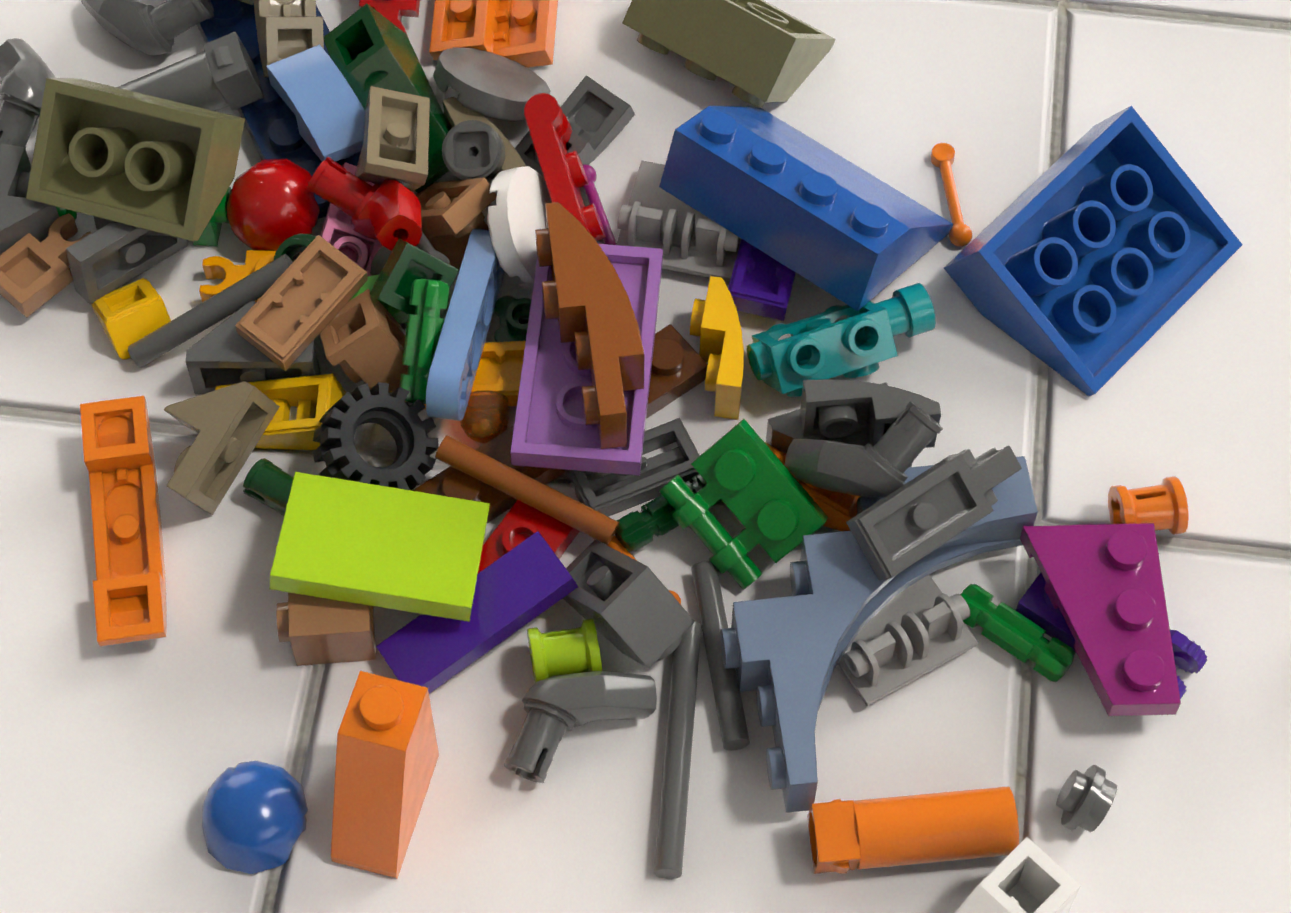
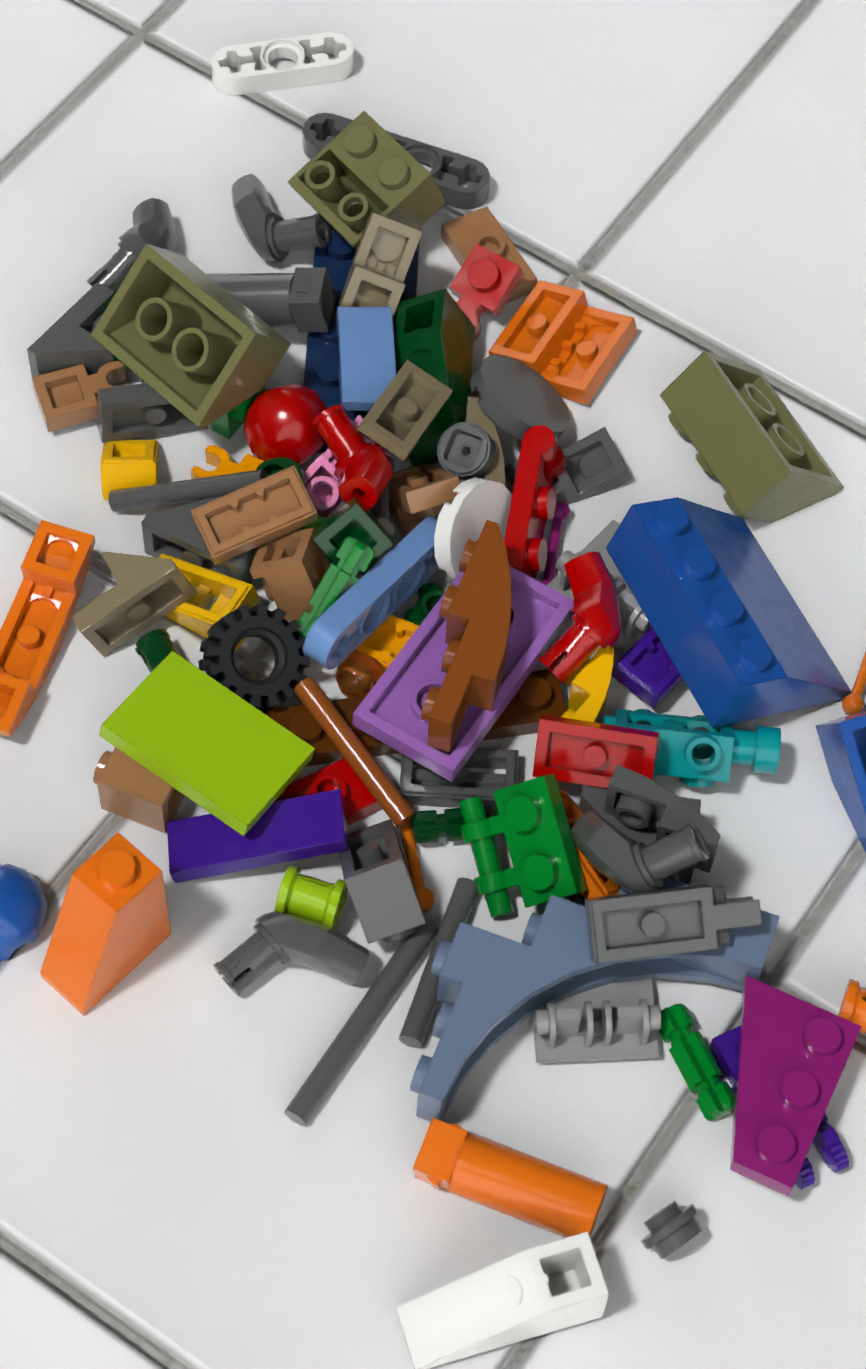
camera: 25 degrees right, 0 degrees up
(691, 253) = (594, 618): none -> red arm
(762, 382) = (590, 750): none -> red plate

